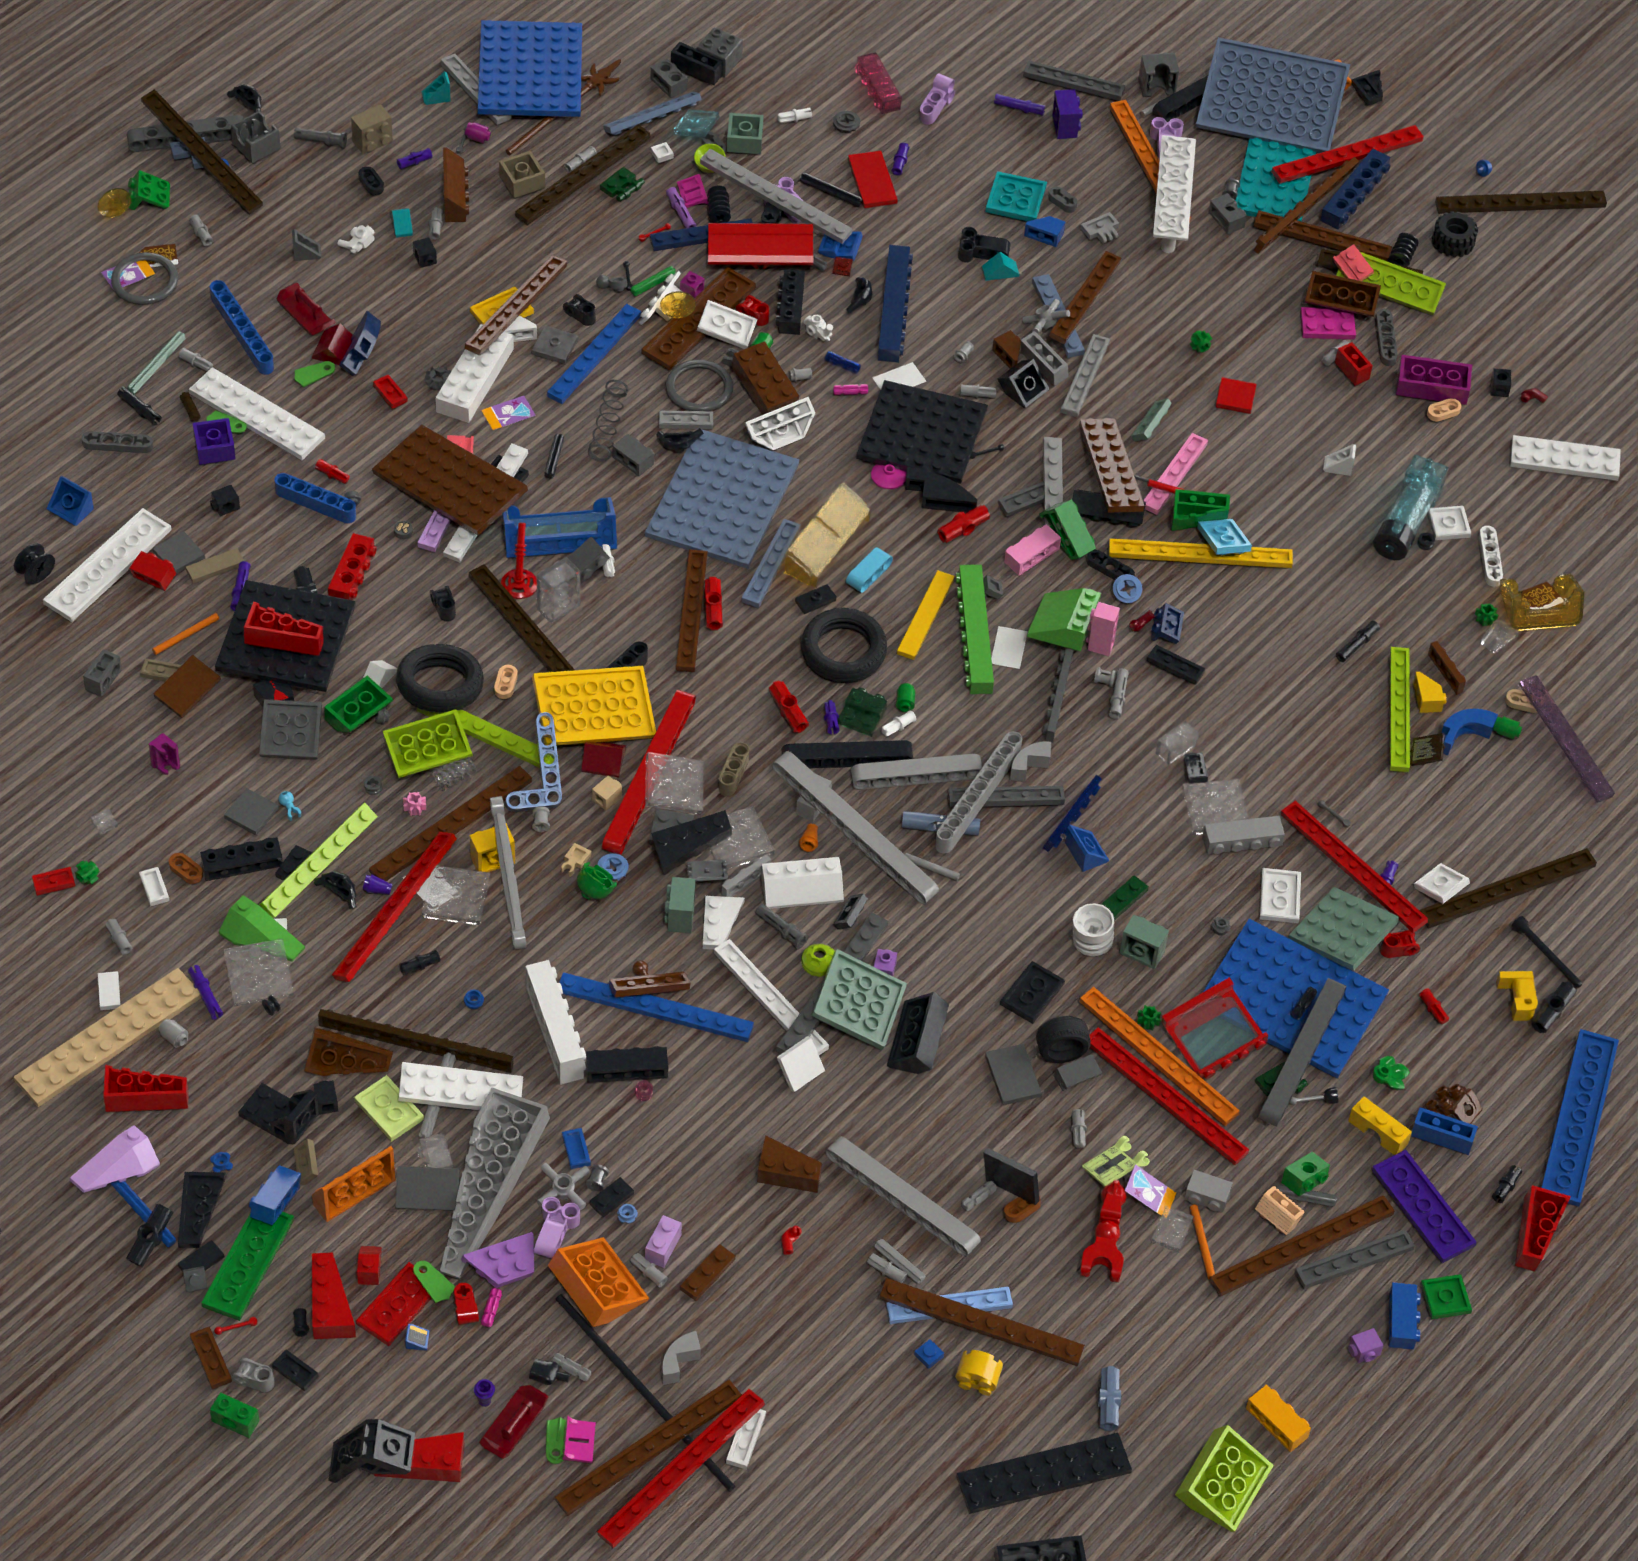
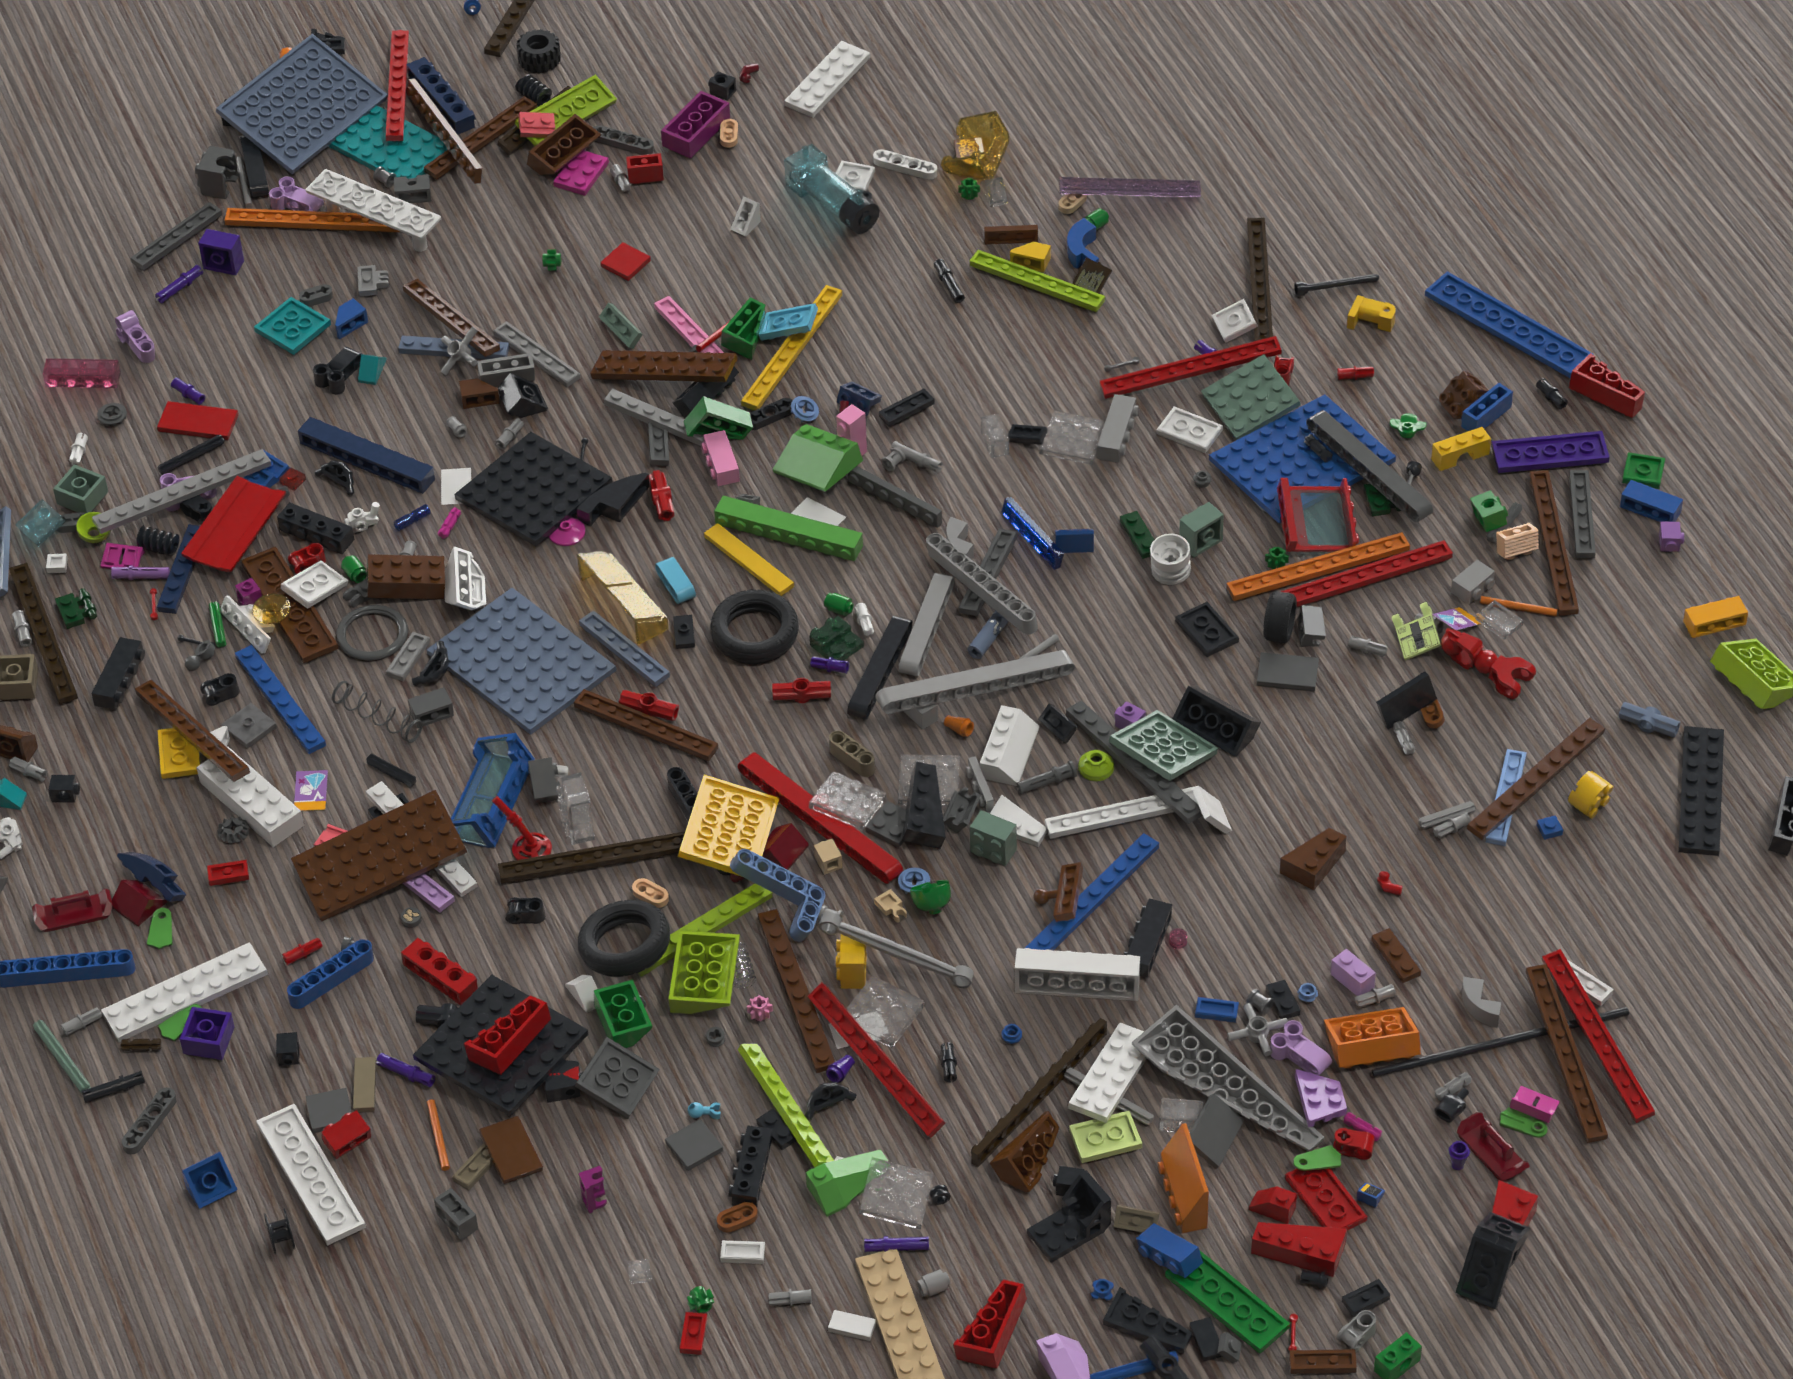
camera: 60 degrees left, 5 degrees down
(561, 236) = (118, 673): none -> black brick
(903, 1196) = (1381, 789): light grey beam -> none
(1548, 1013) = (1395, 296): black piece -> none

